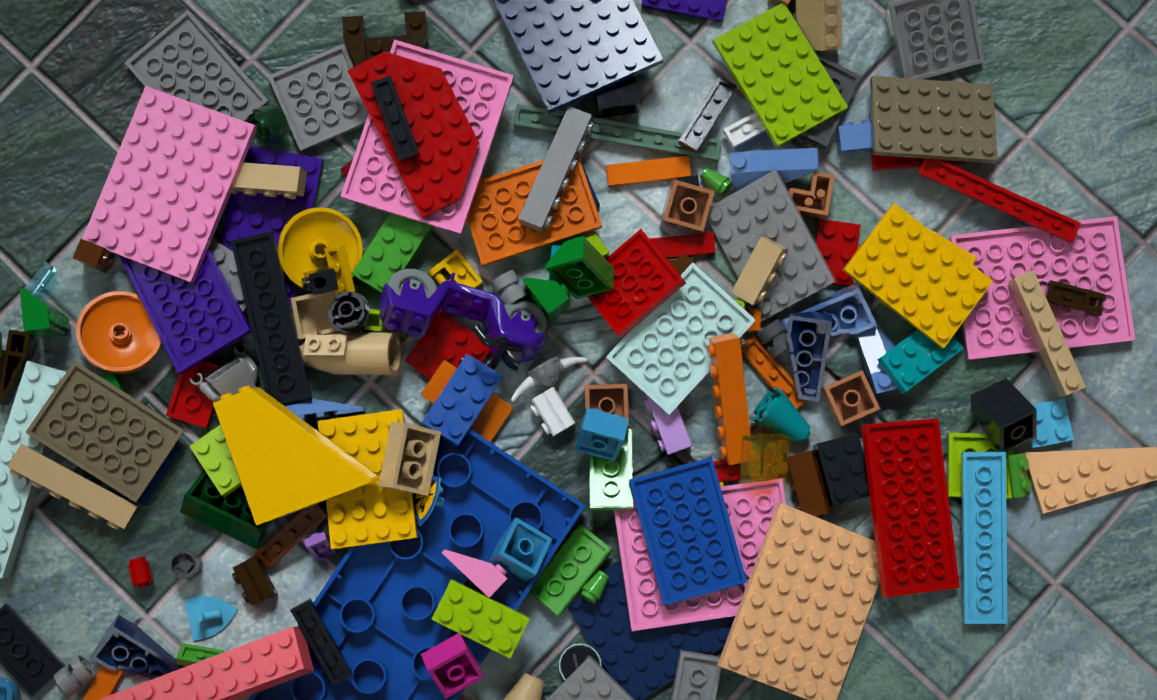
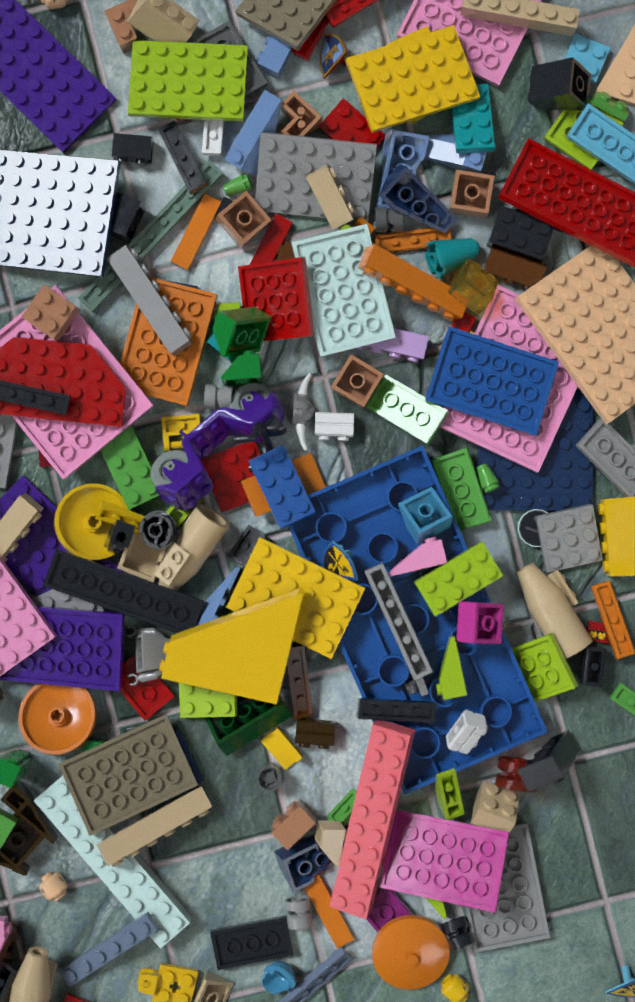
camera: 55 degrees left, 5 degrees up
(140, 572) = (252, 815): red brick -> none
(155, 615) = (293, 824): none -> nougat brick
(162, 658) = (330, 838): none -> tan slope
(208, 616) = (318, 784): medium azure shield -> none
(220, 559) = (281, 748): none -> yellow panel
(319, 546) = (321, 666): medium lavender plate -> none
(357, 645) = (416, 686): none -> dark grey tile
(384, 402) = (244, 546): none -> black bracket
(385, 672) = (451, 677): none -> lime slope
(404, 588) = (398, 621): none -> light grey brick
(409, 458) = (302, 555): tan slope -> none
(484, 88) = (50, 313): none -> nougat brick
(601, 434) = (377, 398): dark azure slope -> none
(685, 65) = (132, 149): none -> black brick
(893, 187) = (331, 53): none -> shield

